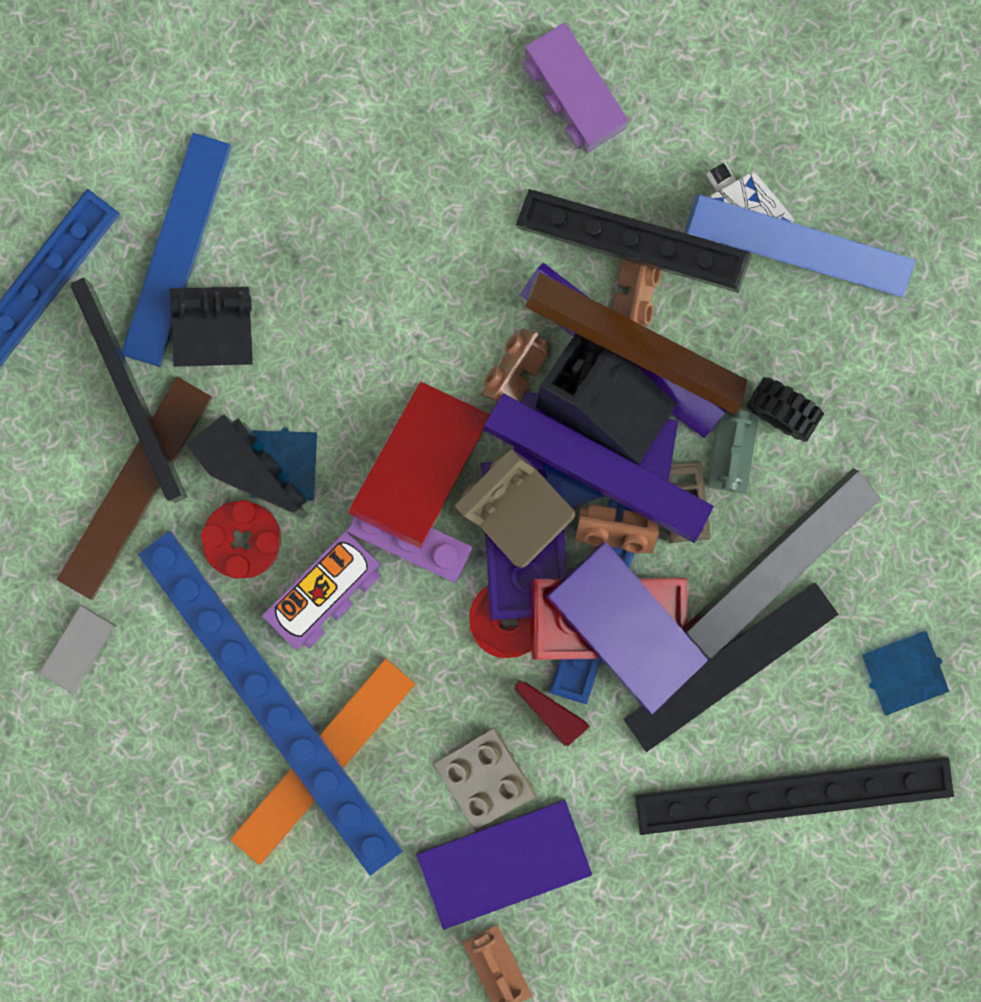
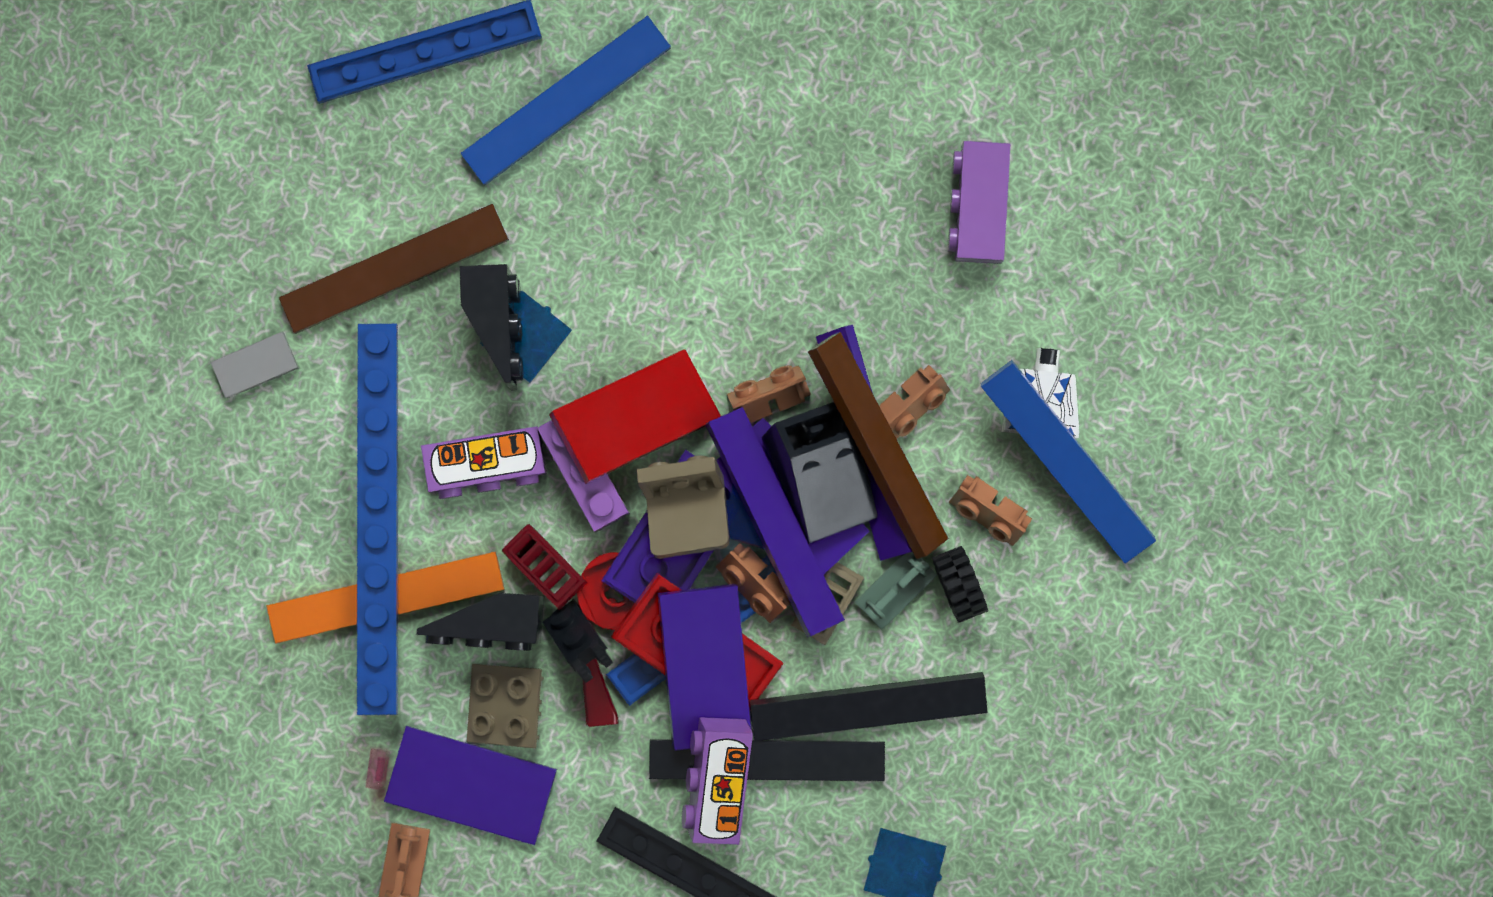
camera: 35 degrees right, 0 degrees up
(128, 390) = (445, 188): black tile -> none
(211, 326) = (549, 183): black hinge -> none
(219, 535) = (463, 355): red plate -> none
(403, 634) = (521, 544): none -> dark red slope
(418, 906) = (377, 768): none -> clear pink tile
(431, 710) = (498, 618): none -> black slope
(506, 681) = (577, 639): none -> black hinge
(634, 240) = (936, 360): black tile -> none
(705, 713) = (717, 780): none -> brick
(782, 332) = (974, 502): none -> nougat hinge

